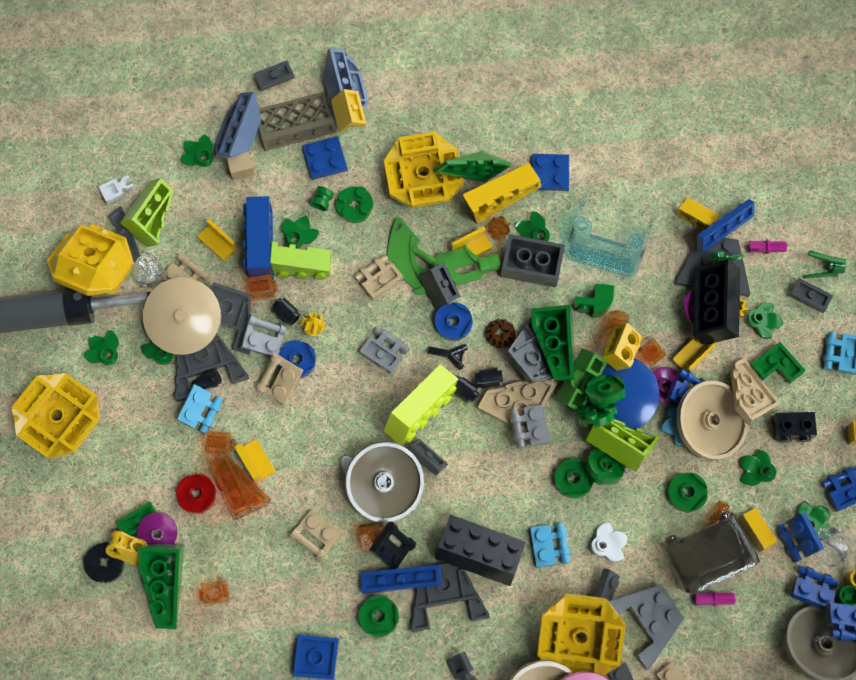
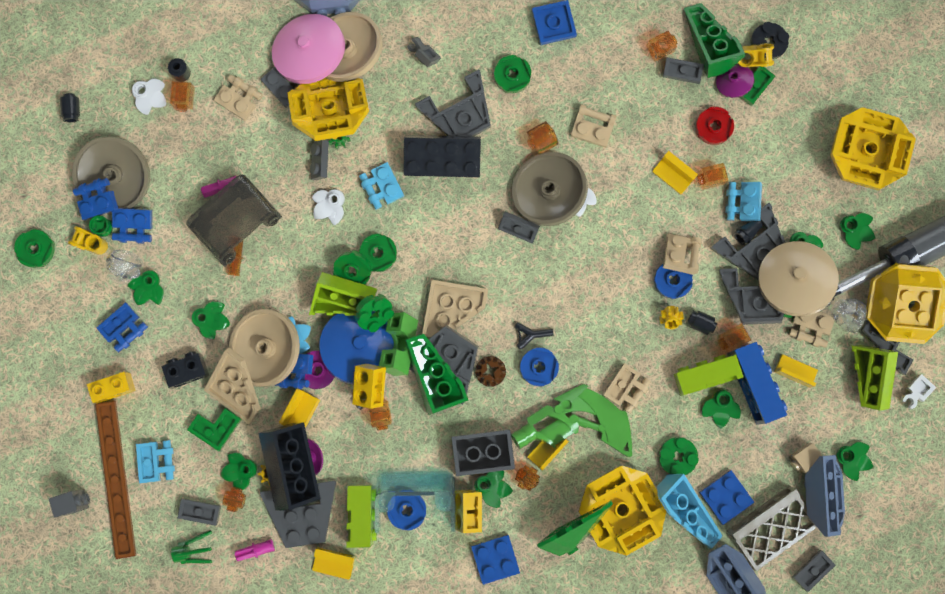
camera: 160 degrees right, 10 degrees up
(204, 560) = (683, 70): none -> dark grey plate
(236, 488) = (680, 139): clear orange wedge -> none
(261, 342) = (713, 282): light grey plate -> none
(322, 198) = (712, 450): green wheel -> none
(348, 110) = (722, 550): yellow panel -> none
(367, 158) = (687, 509): none -> medium azure wedge
(382, 355) = (595, 310): light grey plate -> none
(387, 550) = (522, 128): black plate -> none
(401, 579) = (503, 108): blue plate -> none
(421, 405) = (541, 265): neon yellow brick -> none
(439, 285) = (564, 395): black panel -> none
(466, 390) = (505, 302): black brick -> none
(488, 378) = (487, 321): black brick -> none
(501, 192) = (537, 514): yellow wedge -> none
(535, 423) = (428, 288): light grey plate -> none
(562, 215) = (468, 511): none -> yellow brick
(599, 304) = (403, 431): green brick -> none
(605, 390) = (365, 328): green plate -> none
(619, 226) = (417, 513): none -> blue plate
(652, 352) = (339, 397): clear orange brick -> none
(656, 616) = (269, 154): dark grey wing -> none
(662, 242) = (360, 516): none -> lime wedge
(676, 494) = (265, 265): green plate -> none
(720, 256) = (296, 515): green plate -> none
(725, 225) = (299, 560): blue plate -> none
(757, 529) = (196, 262): yellow panel -> none
(775, 294) = (234, 499): none -> clear orange gear
(803, 533) = (152, 268): blue plate -> none

